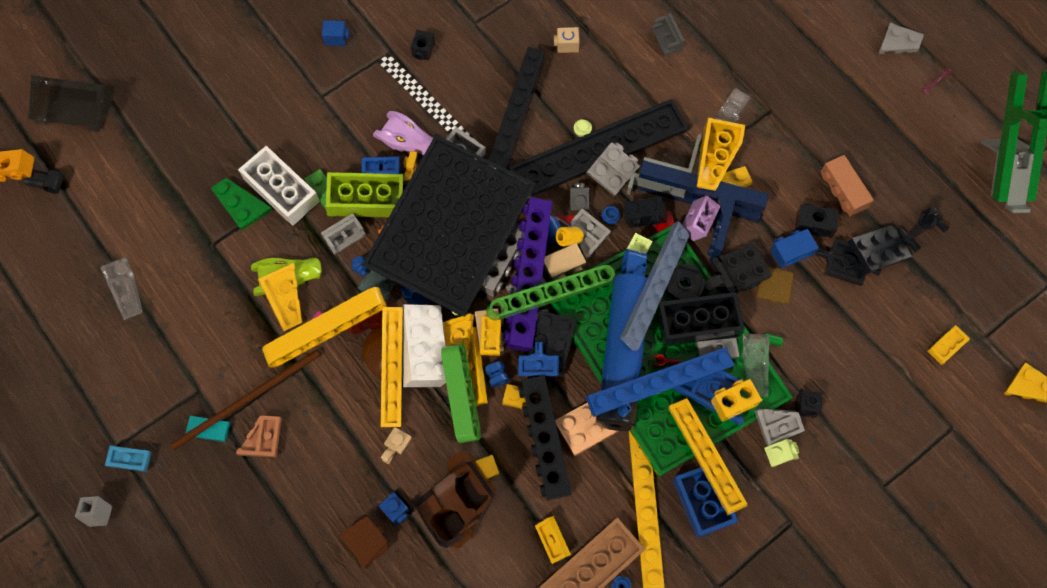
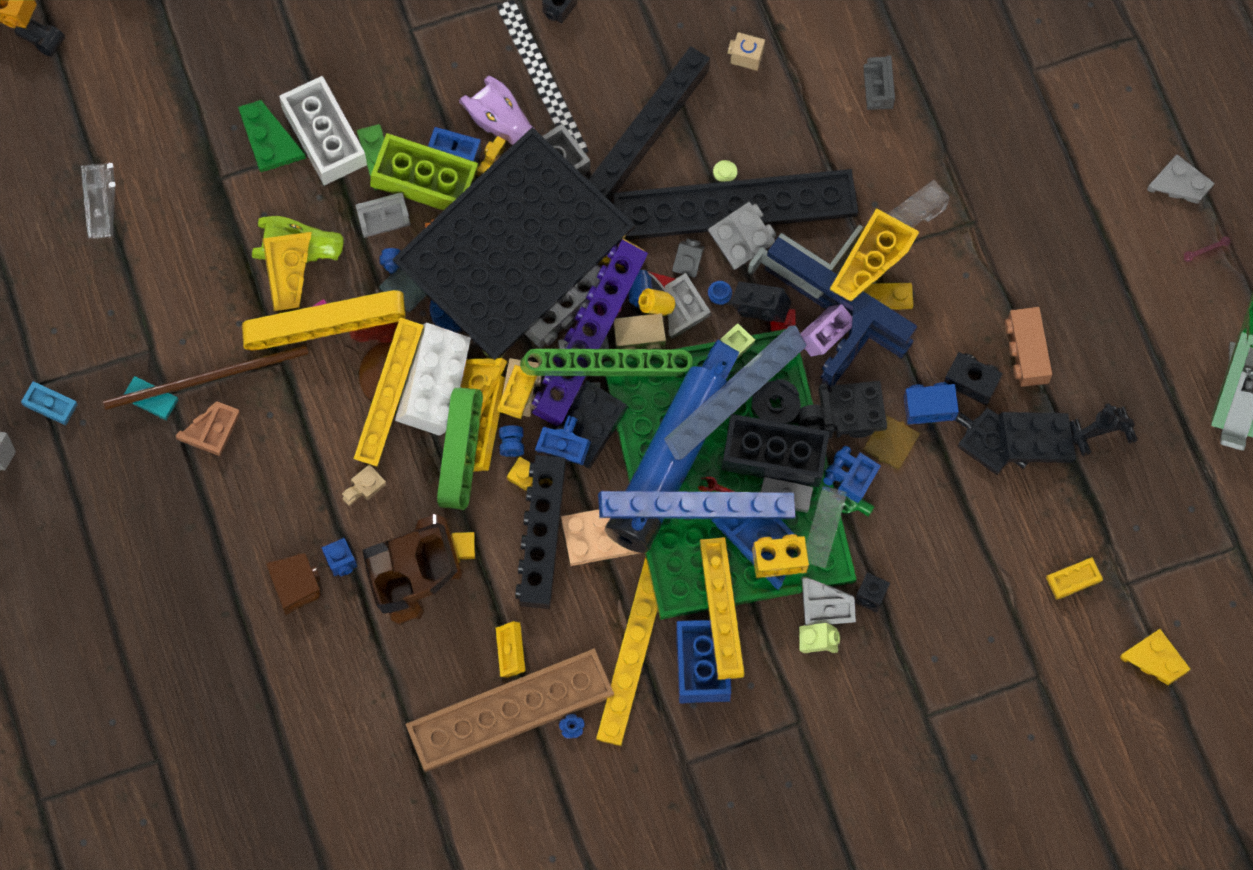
camera: 15 degrees right, 0 degrees up
(764, 318) = (857, 479): none -> blue plate

